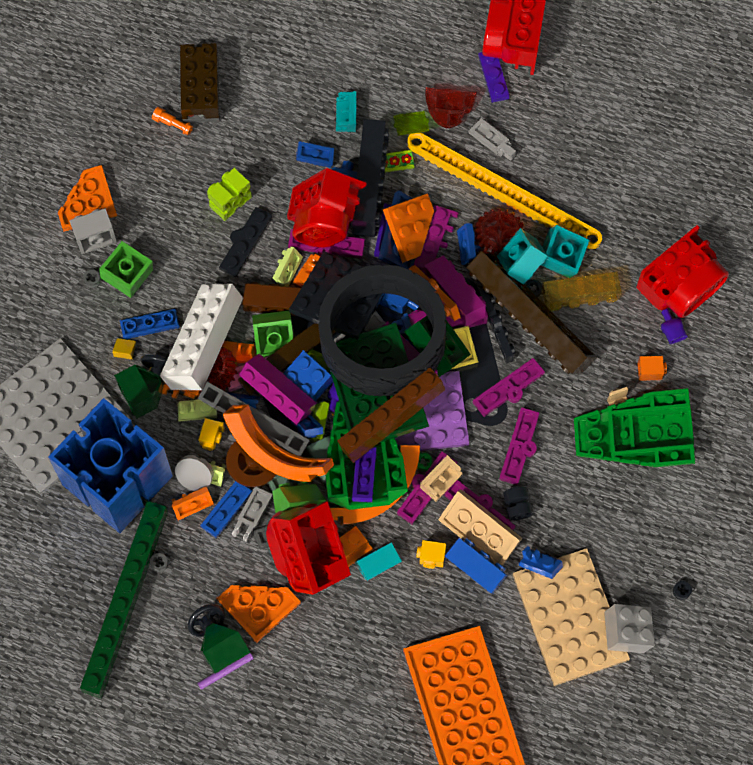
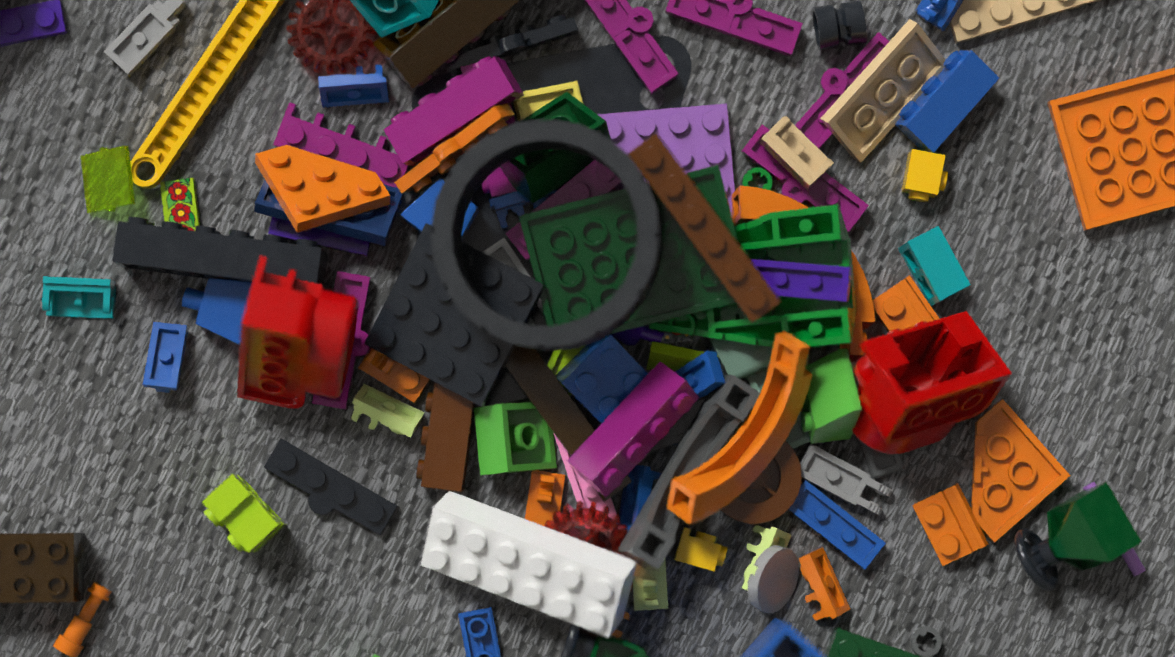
camera: 85 degrees left, 15 degrees up
(226, 573) = (950, 524): none -> orange plate
(449, 105) = (73, 109): clear red brick -> none

